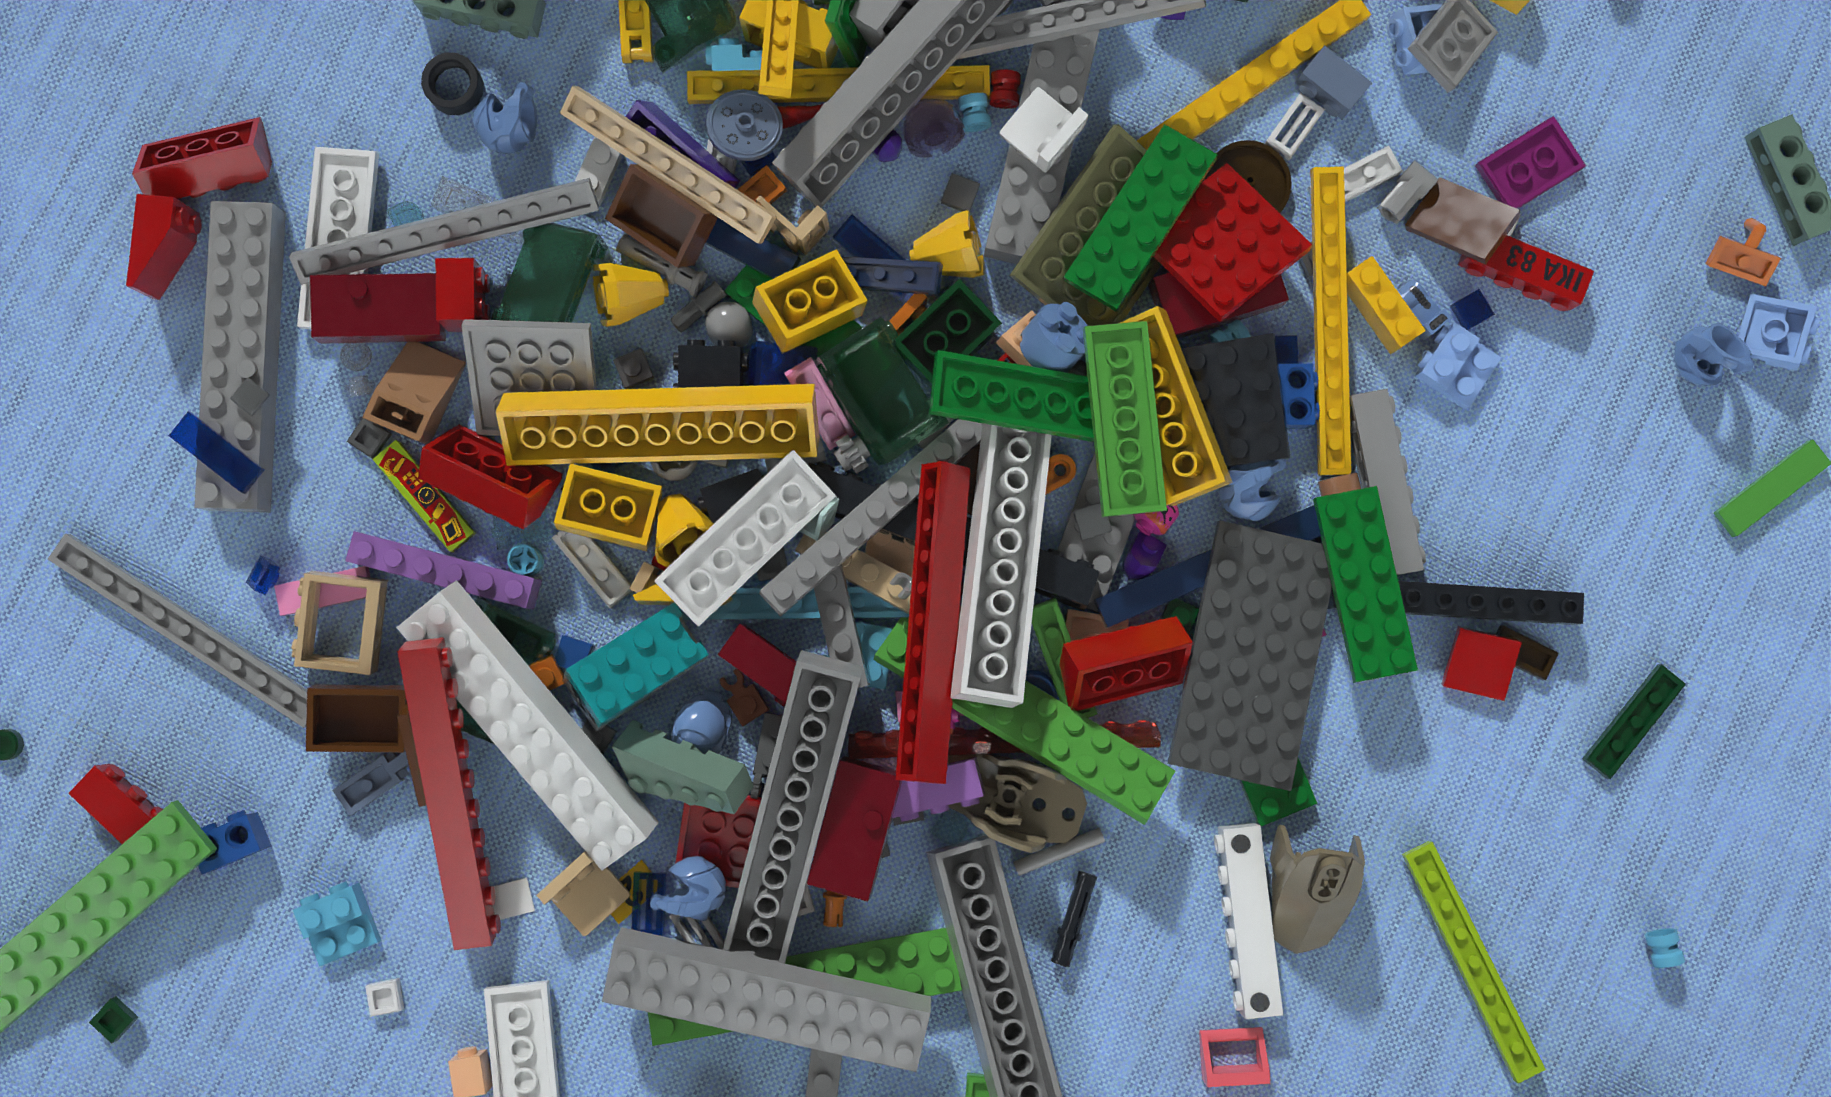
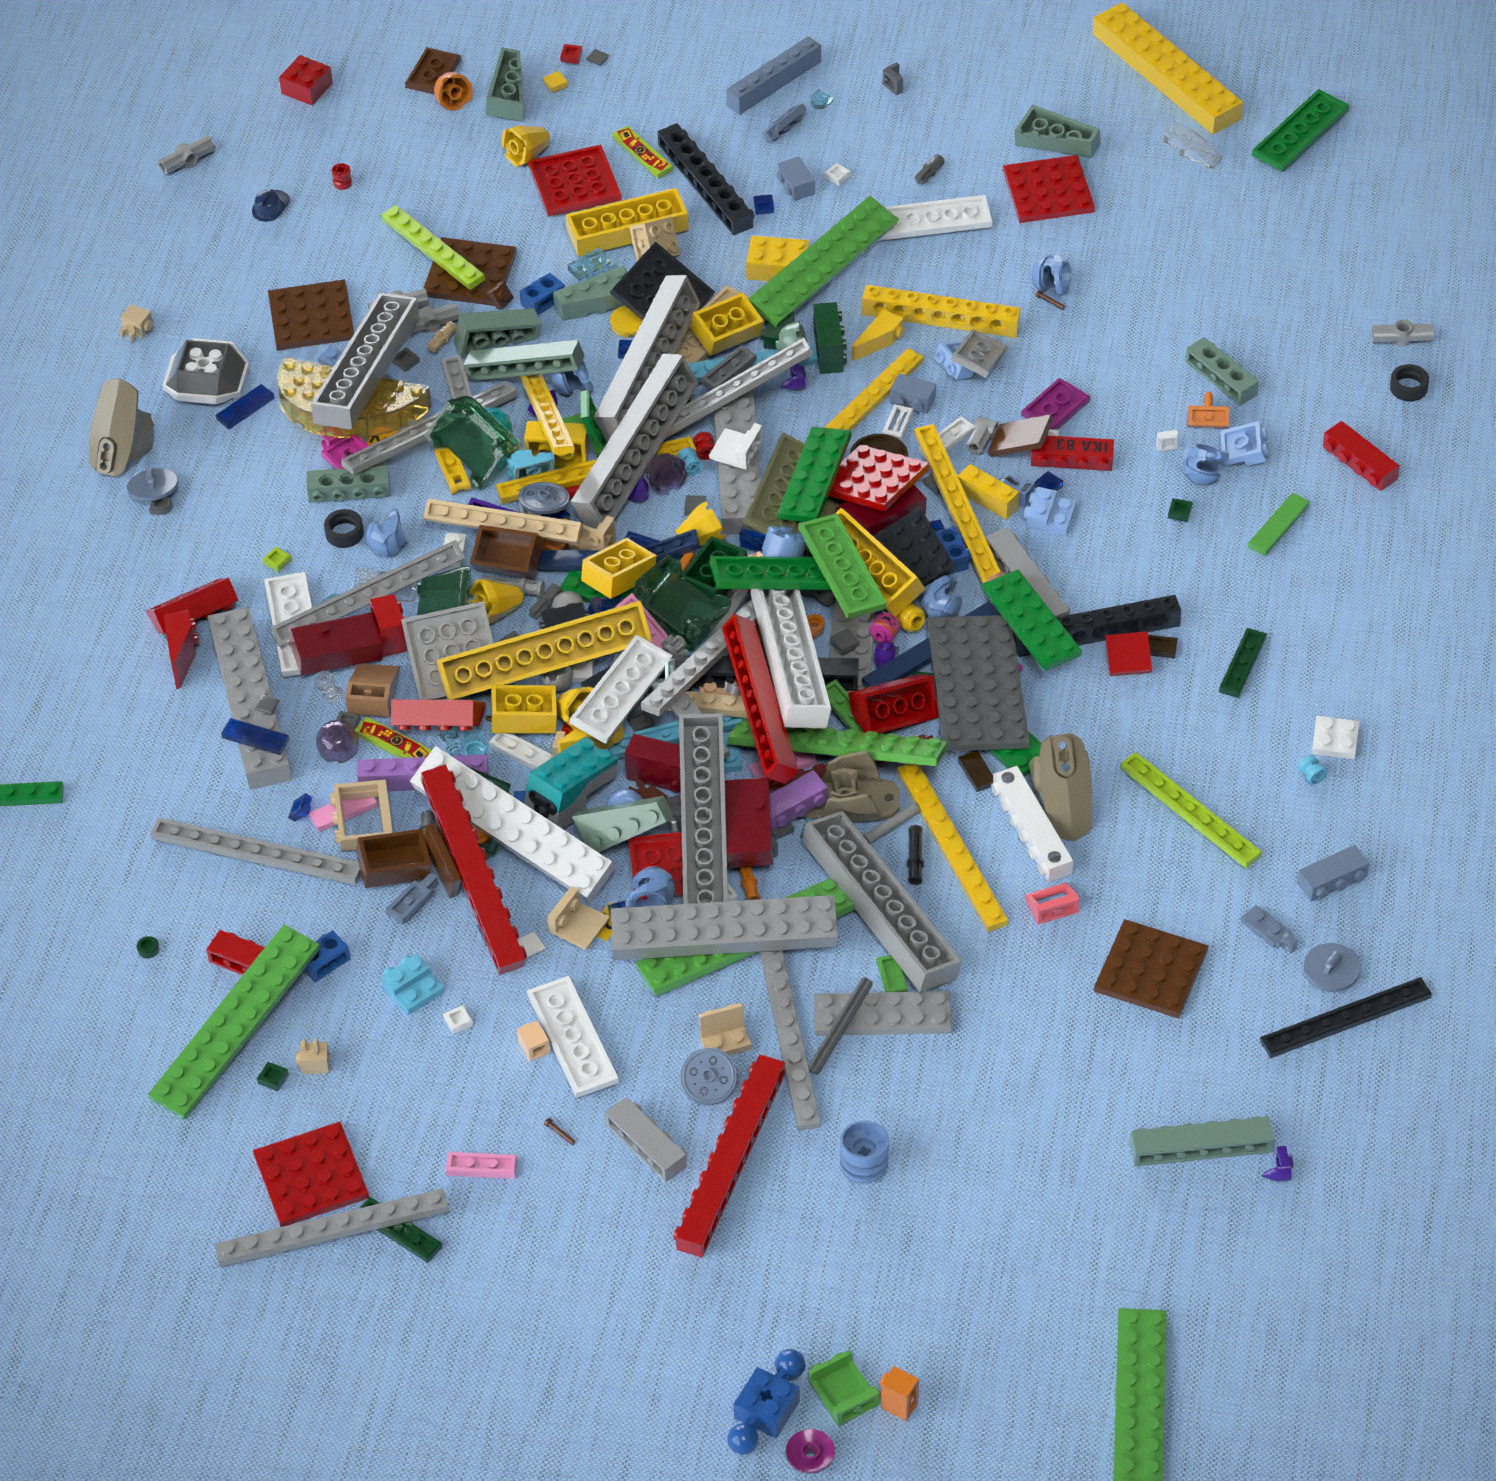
camera: 10 degrees left, 35 degrees down
(173, 1009) = (313, 1057): none -> tan brick
(343, 473) = (337, 741): none -> clear purple cylinder
(347, 108) = (277, 559): none -> lime tile
(1021, 294) = (751, 540): none -> clear blue tile
(1132, 940) = (952, 847): none -> yellow plate
(1200, 509) = (911, 618): none -> yellow head
(1204, 799) = (976, 770): none -> dark brown tile
(1642, 421) = (1180, 510): none -> dark green plate
(1668, 288) = (1167, 440): none -> white tile
(1715, 894) = (1335, 737): none -> white plate

